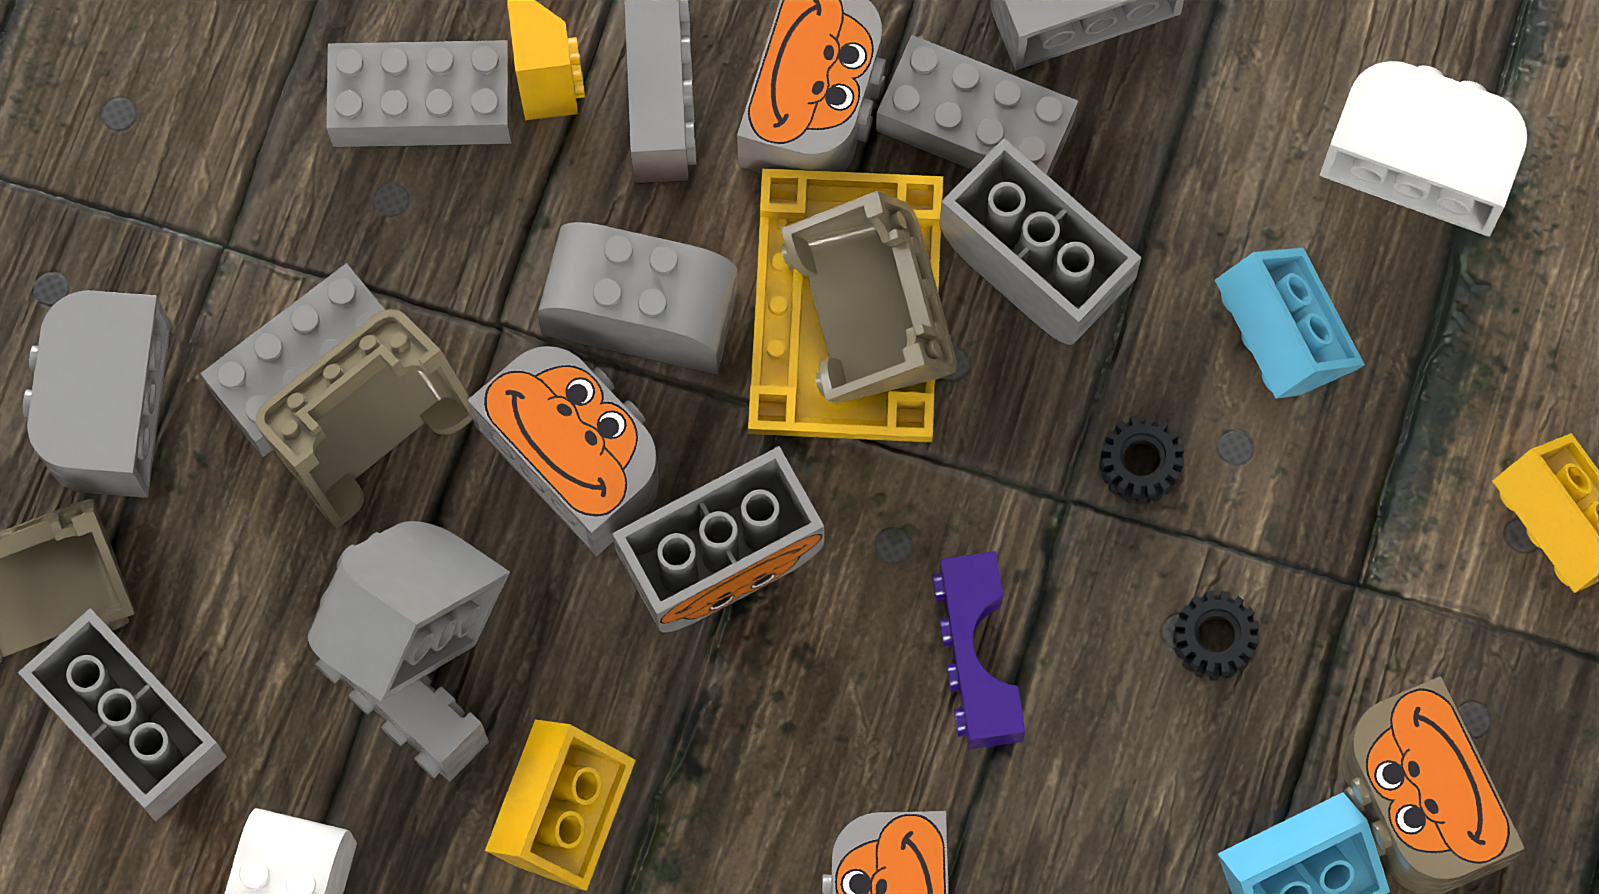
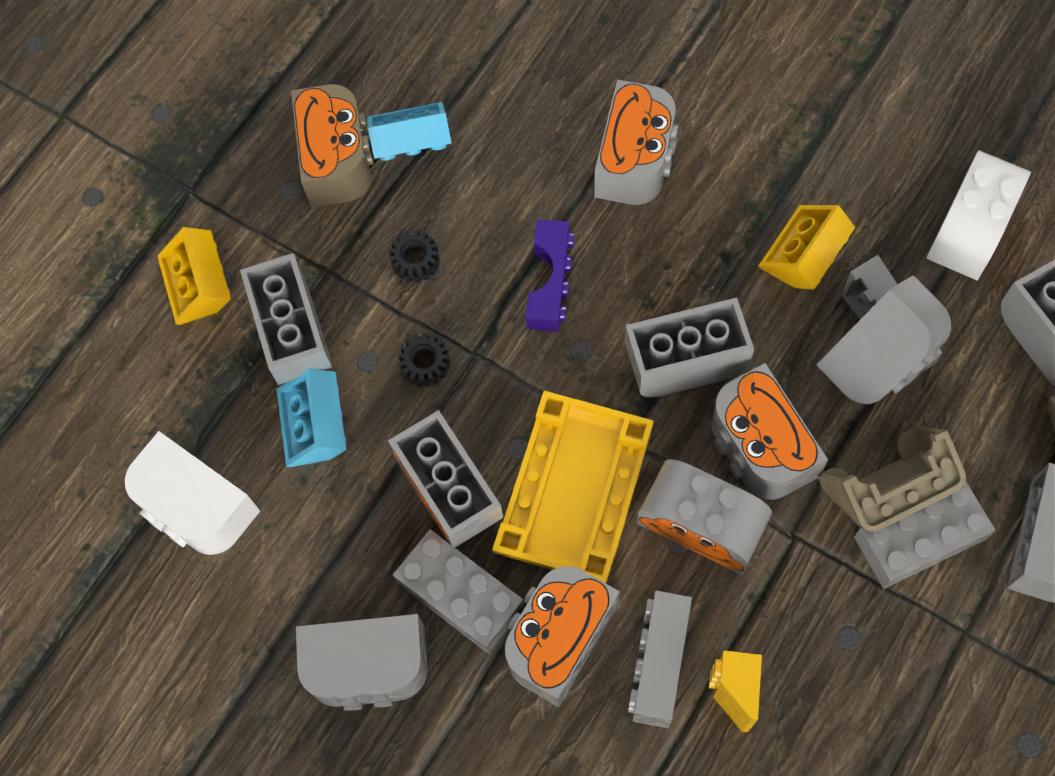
camera: 160 degrees left, 5 degrees down
(419, 93) = (823, 697): light grey brick -> none
(871, 297) = (558, 472): dark tan windscreen -> none
(1374, 437) = (285, 318): none -> light grey brick

